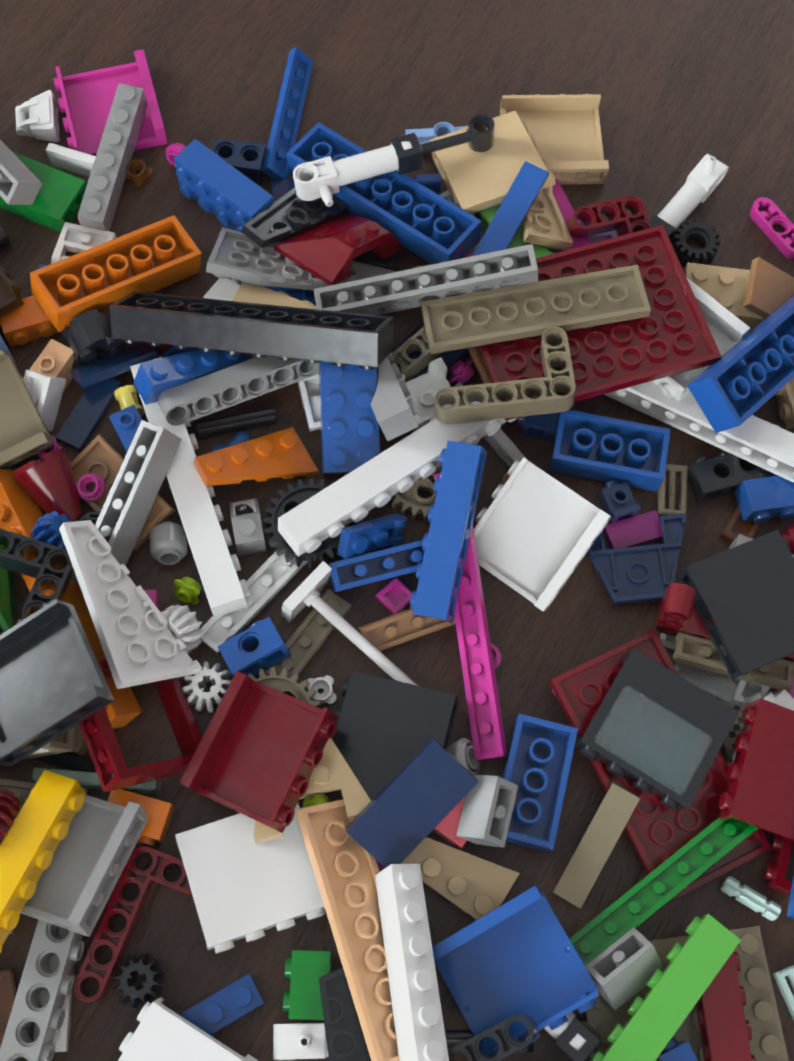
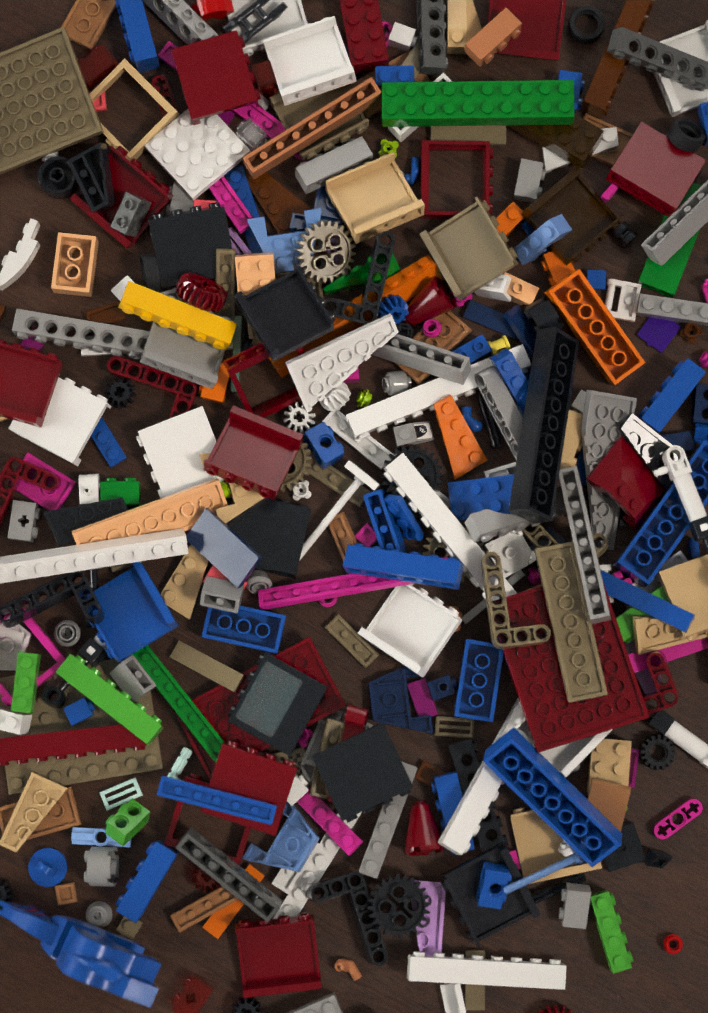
camera: 90 degrees right, 15 degrees up
(70, 159) = (696, 282): white tile -> none
(135, 211) = (658, 333): none -> dark purple piece
(550, 626) = (352, 641): none -> dark tan tile

